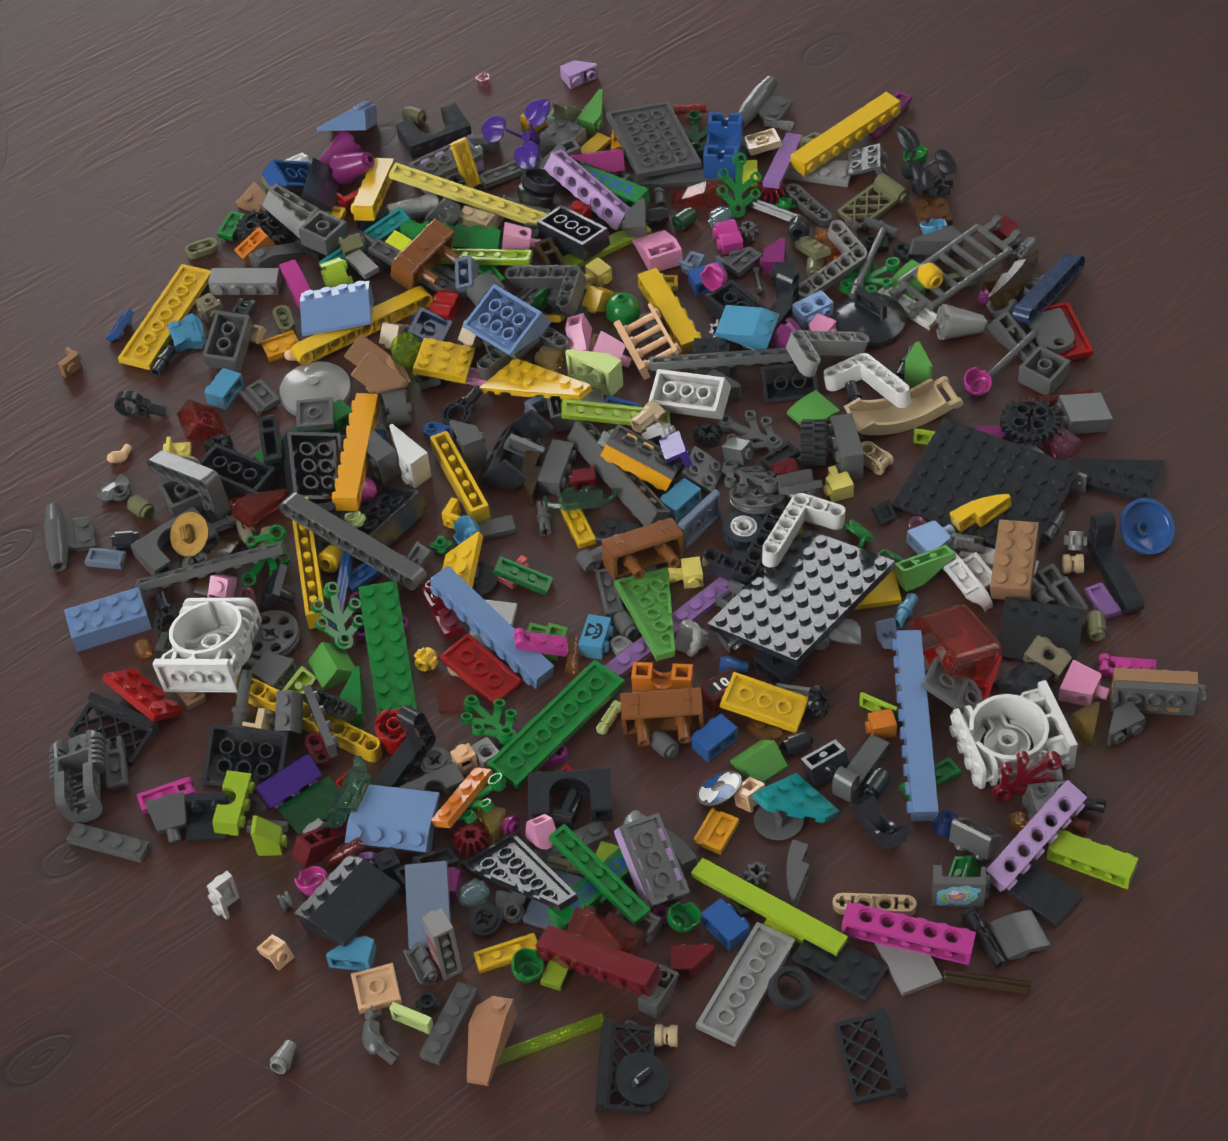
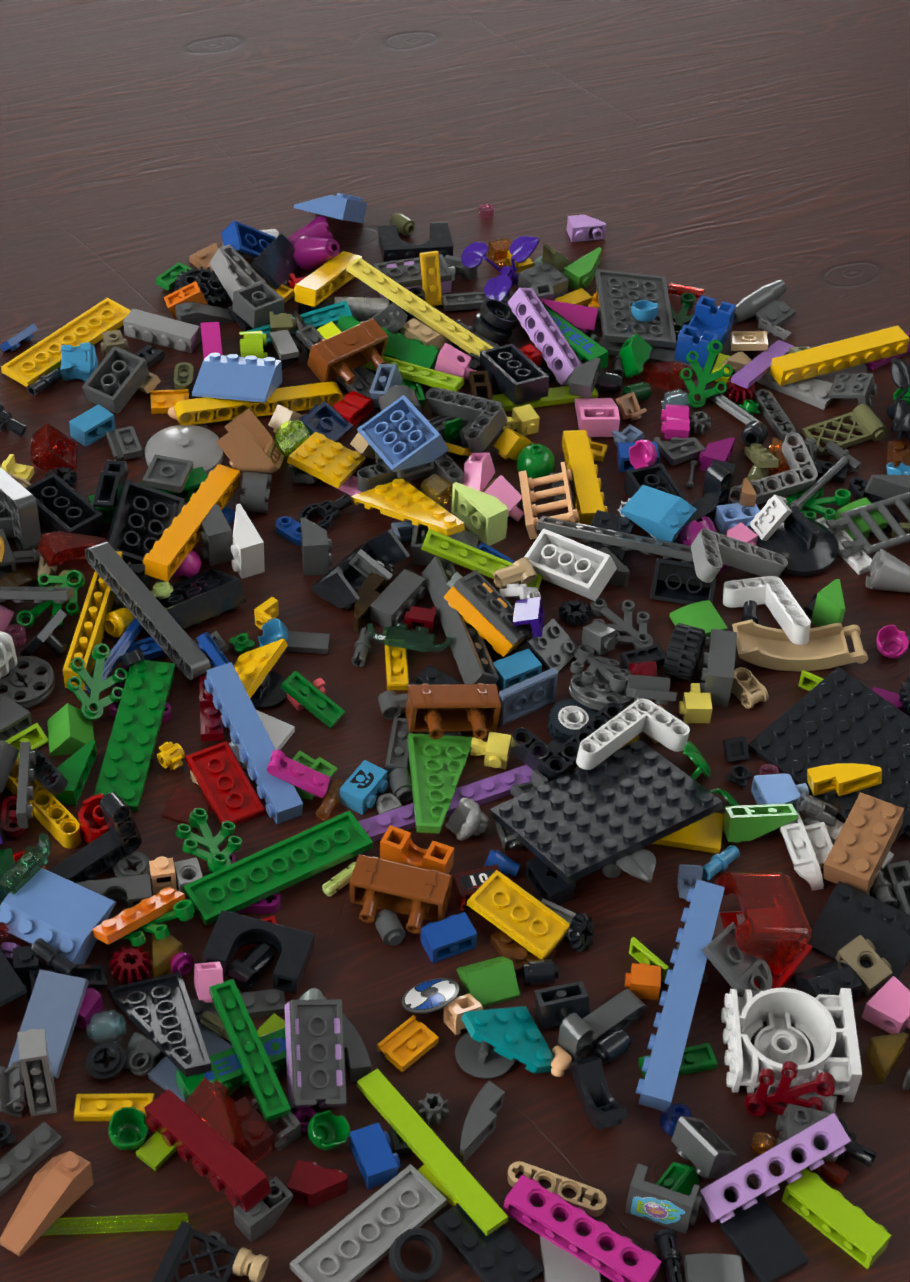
camera: 10 degrees right, 5 degrees down
(201, 248) = (131, 289): olive plate -> none
(358, 586) = (131, 657): none -> black beam
(410, 852) = (54, 957): none -> black axle
(418, 557) = (208, 646): none -> blue plate
(460, 477) = (290, 580): yellow brick -> none
(512, 116) = (498, 250): none -> clear orange brick
(664, 140) = (644, 310): none -> dark azure hair
(670, 185) = (634, 355): none -> green slope
(683, 234) = (629, 407): none -> medium nougat bracket
(761, 164) = (738, 361): none -> tan slope
(815, 287) = (748, 494): none -> medium nougat slope
(841, 807) = (560, 1062): none -> light nougat arm
(842, 302) = (770, 517): none -> white bracket
(894, 533) = (739, 775): none -> black plate
(930, 275) = (877, 516): yellow head -> none

